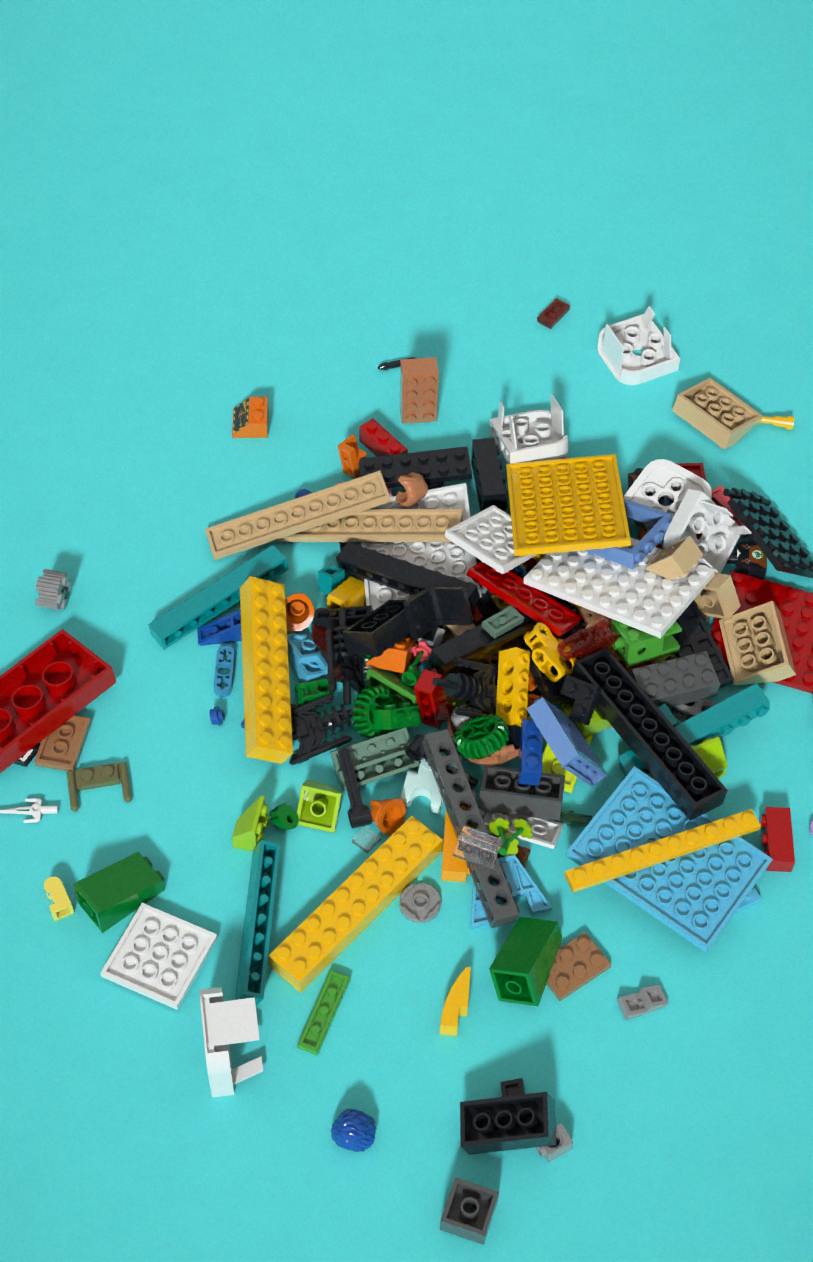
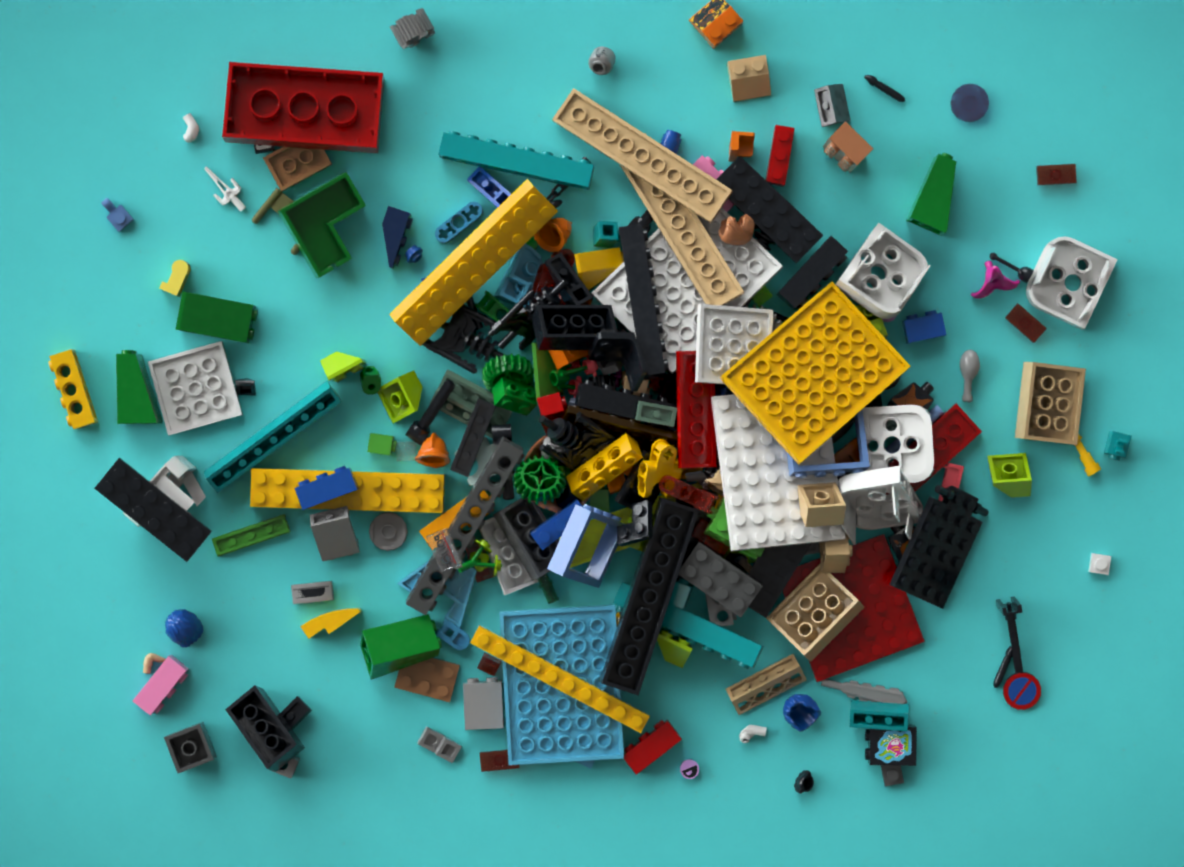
camera: 50 degrees right, 35 degrees up
(35, 1035) = (76, 378): none -> yellow brick
(115, 998) = (134, 391): none -> green slope
(122, 759) = (312, 222): none -> green piece
(184, 715) = (394, 229): none -> dark blue slope
(197, 914) = (245, 386): none -> black slope
(208, 501) = (601, 60): none -> light grey head
(228, 1033) = (153, 509): none -> black plate
(309, 426) = (749, 78): none -> tan slope
(340, 902) = (326, 487): none -> blue brick
(343, 849) = (381, 444): none -> bright green brick
(357, 1190) = (148, 662): none -> tan animal
(377, 397) = (832, 104): none -> flat silver panel
(385, 933) = (334, 533): none -> light grey panel
(389, 1193) = (161, 685): none -> bright pink brick
(402, 770) = (473, 437): none -> black plate
(418, 999) = (312, 592): none -> light grey slope
(456, 327) = (969, 102): none -> tile
(504, 377) = (934, 198): none -> green slope
(561, 913) = (458, 640): none -> dark azure plate
(592, 443) = (923, 327): none -> blue brick
(596, 386) = (994, 280): none -> dark pink piece
(603, 910) = (489, 664): none -> clear red slope
(607, 371) = (1023, 273): none -> black hinge
(636, 936) = (483, 704): none -> light grey panel
(644, 392) = (1025, 323): none -> clear red plate
(647, 441) = (969, 368): none -> light grey piece
(695, 965) = (495, 760): none -> clear red plate
(753, 465) = (1011, 474): none -> lime slope
(783, 396) = (1117, 445): none -> teal brick
(786, 723) = (764, 682): none -> tan fence

